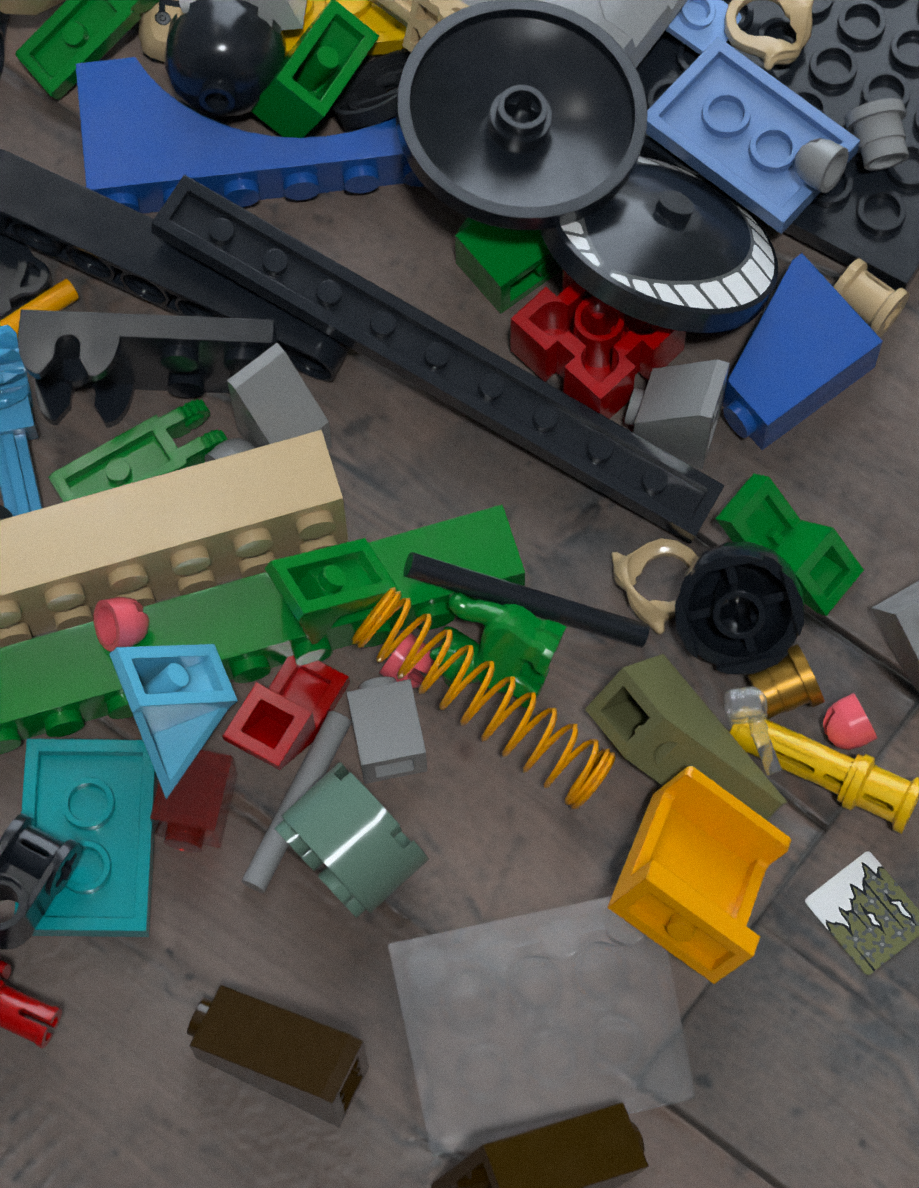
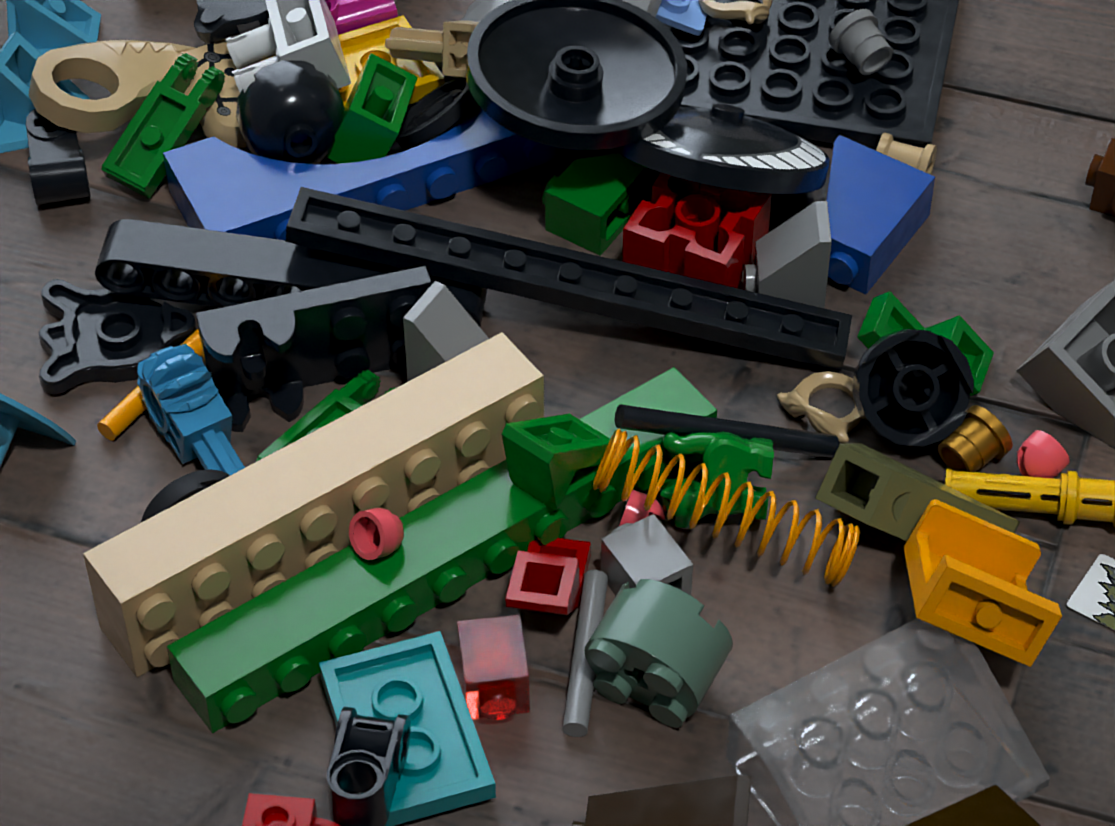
camera: 20 degrees left, 20 degrees down
(175, 700) = (447, 580): medium azure slope -> none
(743, 132) = (762, 68): medium blue plate -> none
(750, 707) = (957, 456): clear hand -> none
(821, 163) = (829, 62): light grey hinge -> none

